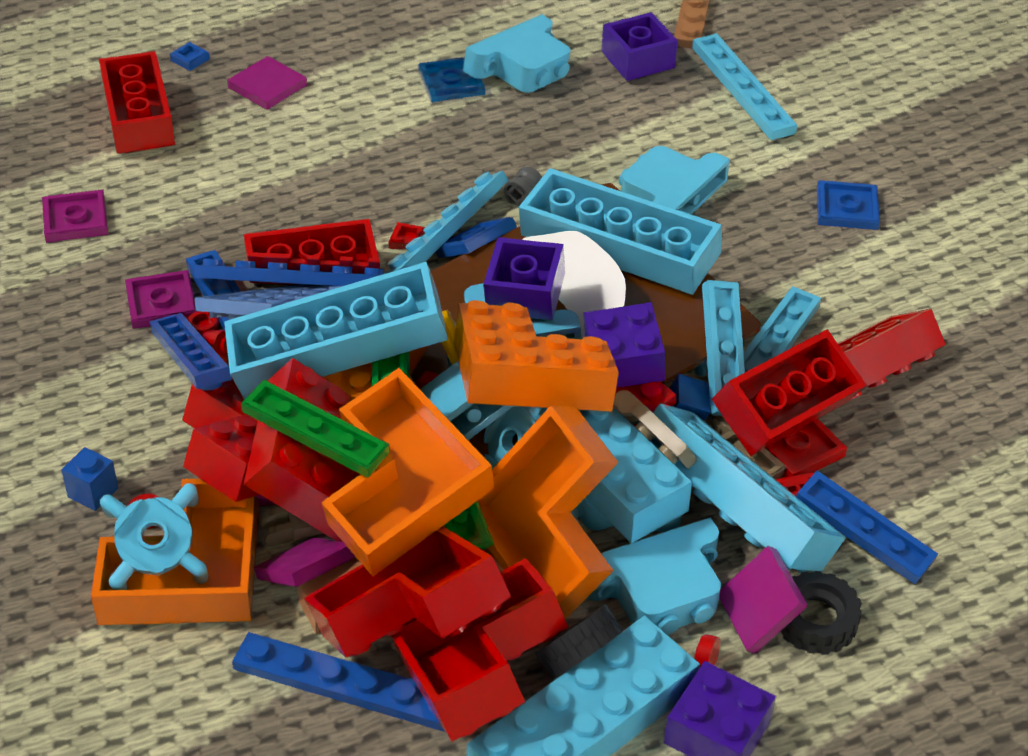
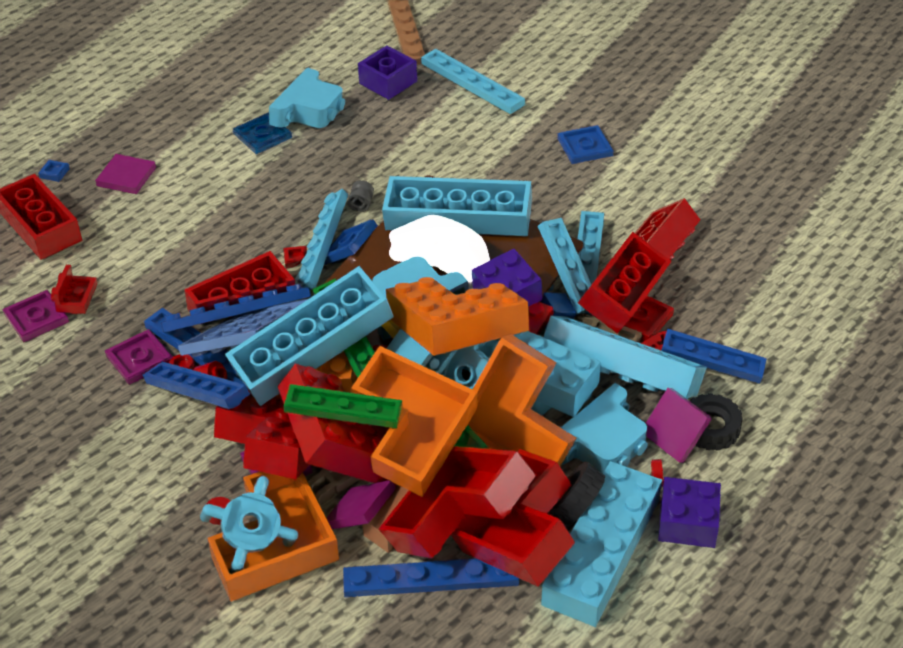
camera: 20 degrees left, 0 degrees up
(89, 478) = (167, 501): blue brick -> none
(126, 200) = (73, 292): none -> red bracket
(526, 275) = (417, 255): dark purple brick -> none
(652, 427) = (559, 334): dark tan hinge -> none
(674, 178) = (462, 158): medium azure brick -> none

